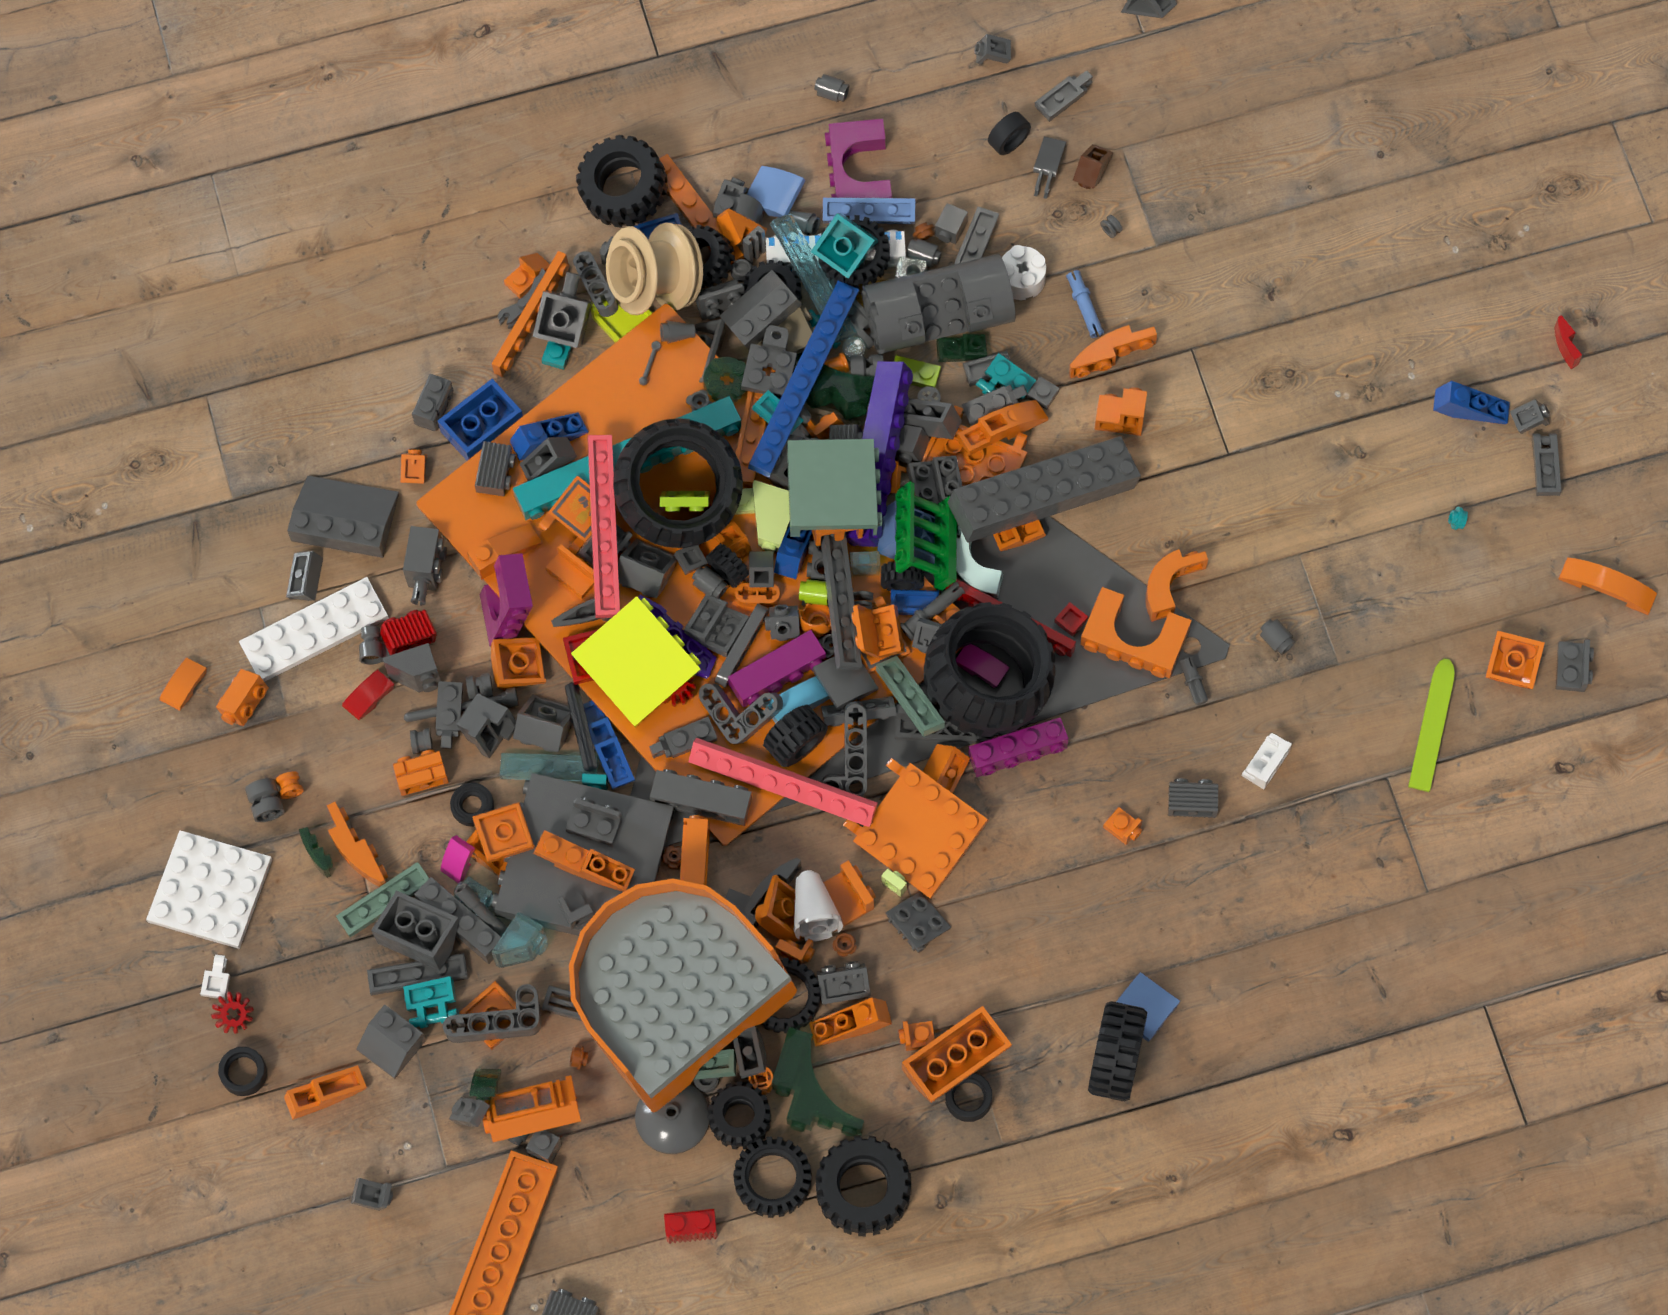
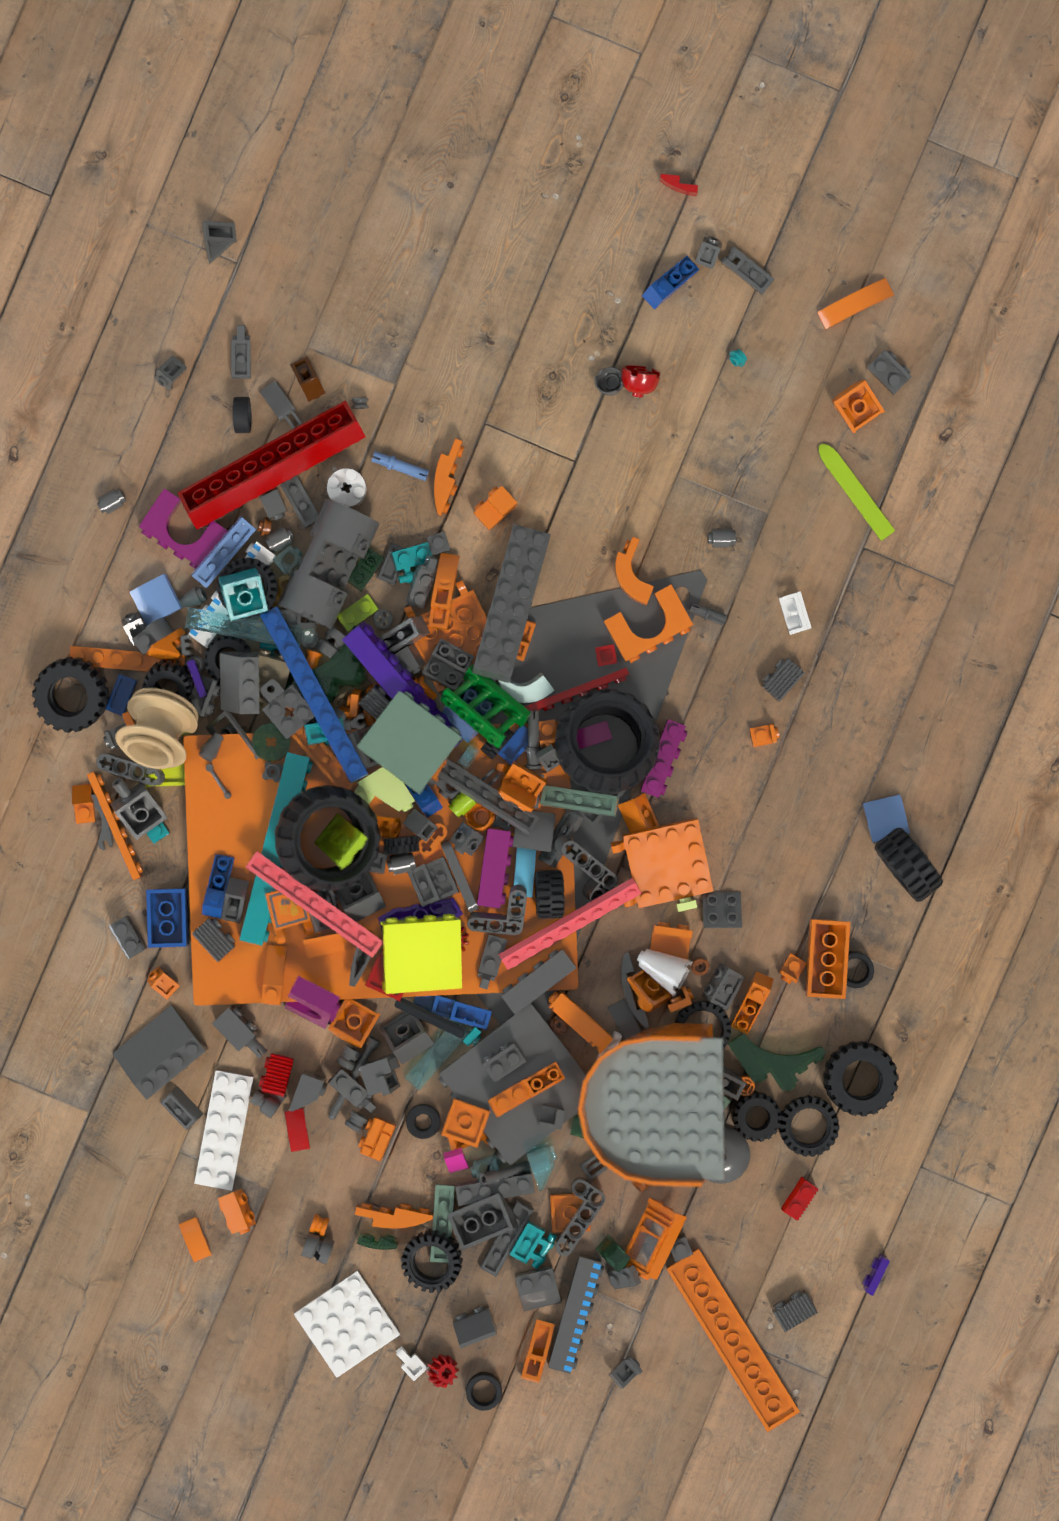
camera: 55 degrees left, 20 degrees up
(303, 1008) = (474, 1326): none -> dark grey slope
(319, 897) = (418, 1277): none -> black tyre
(393, 1097) = (574, 1314): none -> dark grey brick
(733, 272) = (197, 678): none -> dark purple tile
(986, 190) = (271, 465): none -> red brick
(1330, 422) = (609, 381): none -> dark grey hair
(1355, 446) = (640, 380): none -> red cylinder

